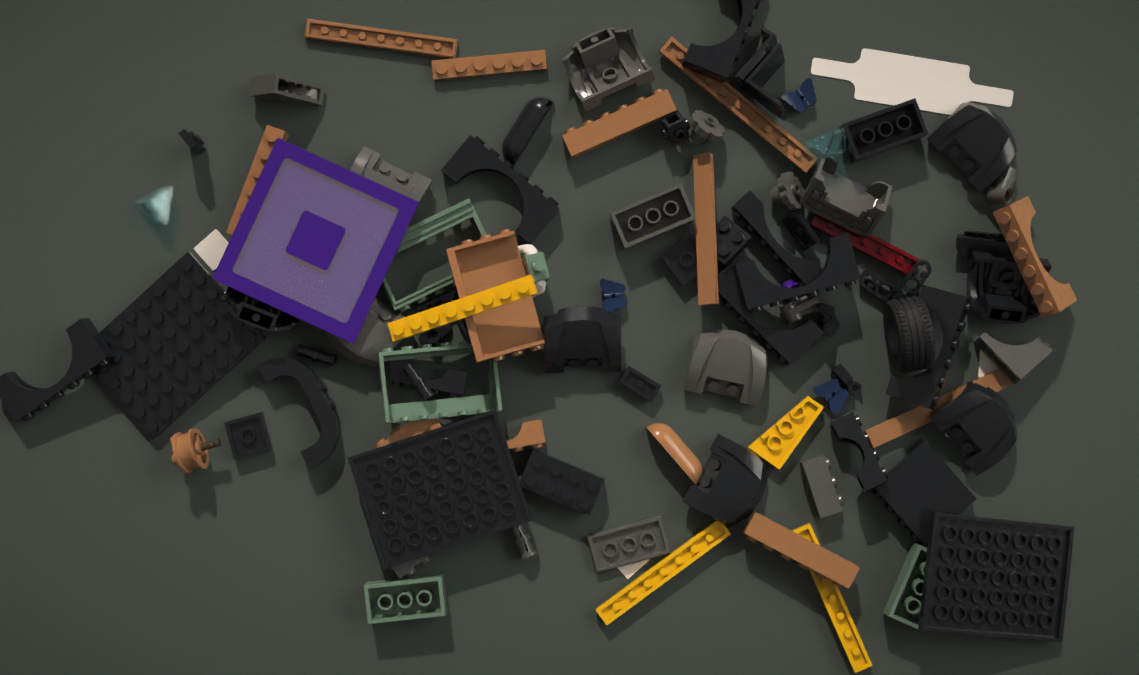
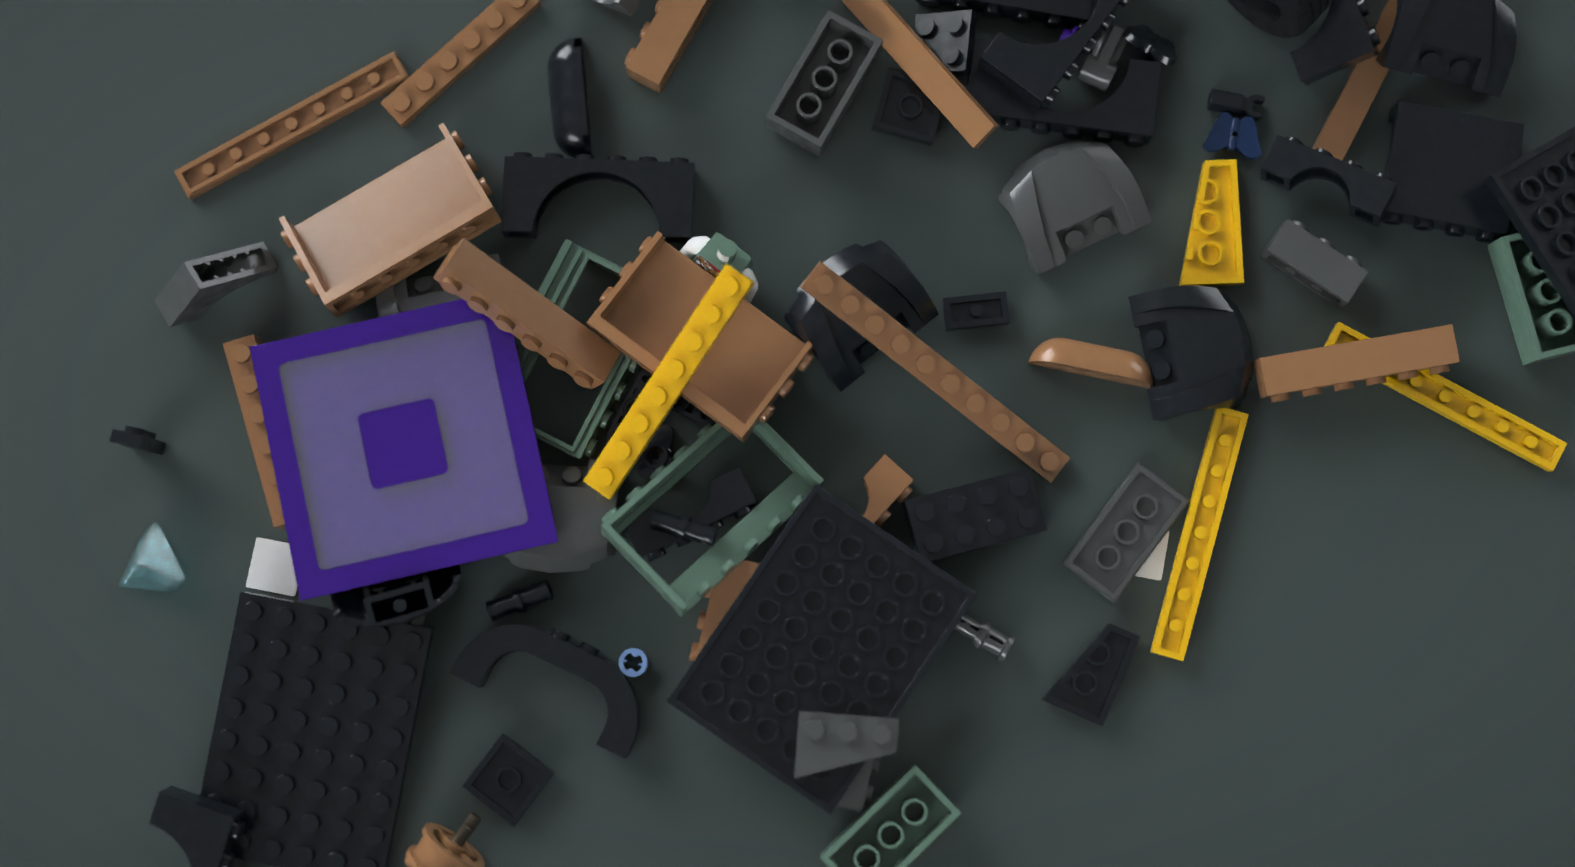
camera: 35 degrees left, 5 degrees down
(343, 429) = (631, 672): none -> light blue bush
(391, 127) = (392, 226): none -> medium nougat panel
(414, 539) = (841, 740): none -> dark grey wing
(419, 223) = (526, 315): none -> medium nougat brick
(560, 600) = (1095, 676): none -> black wing
(594, 399) = (934, 371): none -> medium nougat plate
(610, 288) = (850, 212): dark blue animal -> none

